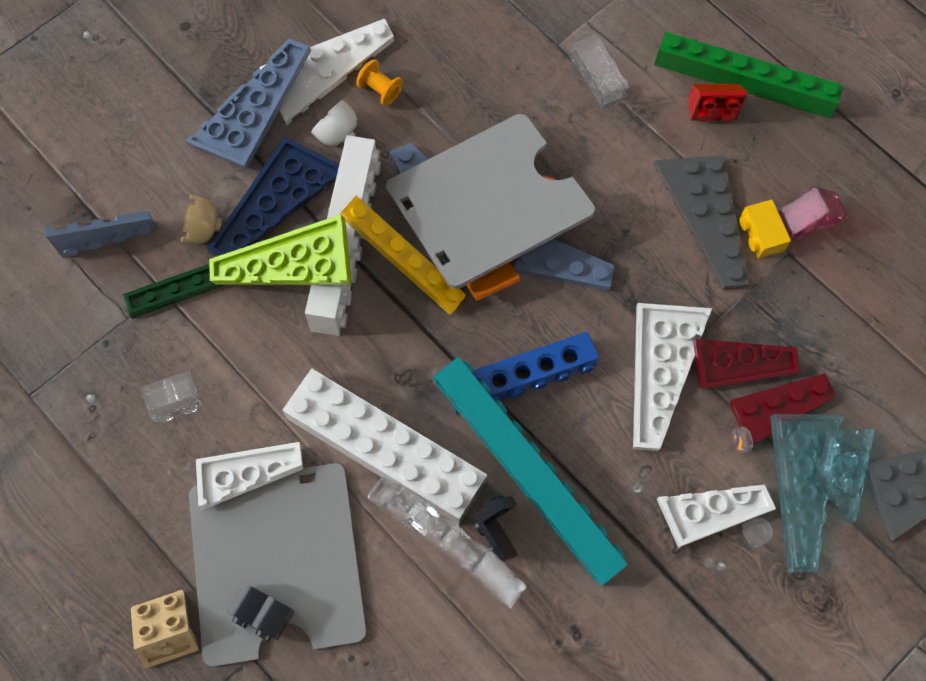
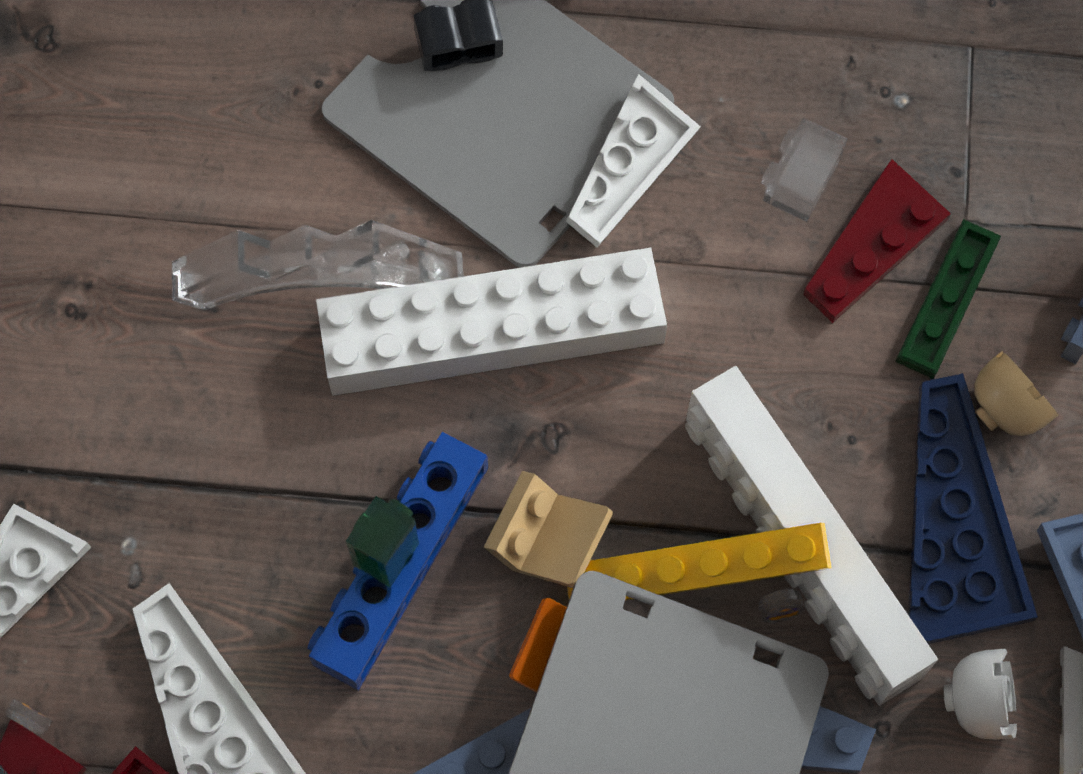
camera: 140 degrees right, 0 degrees up
(171, 340) = (878, 238): none -> dark red wing
(300, 257) = (821, 426): lime wing -> none
(447, 325) = (547, 532): none -> tan bracket
(488, 526) = (260, 326): black bracket -> none
(529, 365) = (383, 540): none -> clear green brick
(530, 472) = (283, 428): teal brick -> none

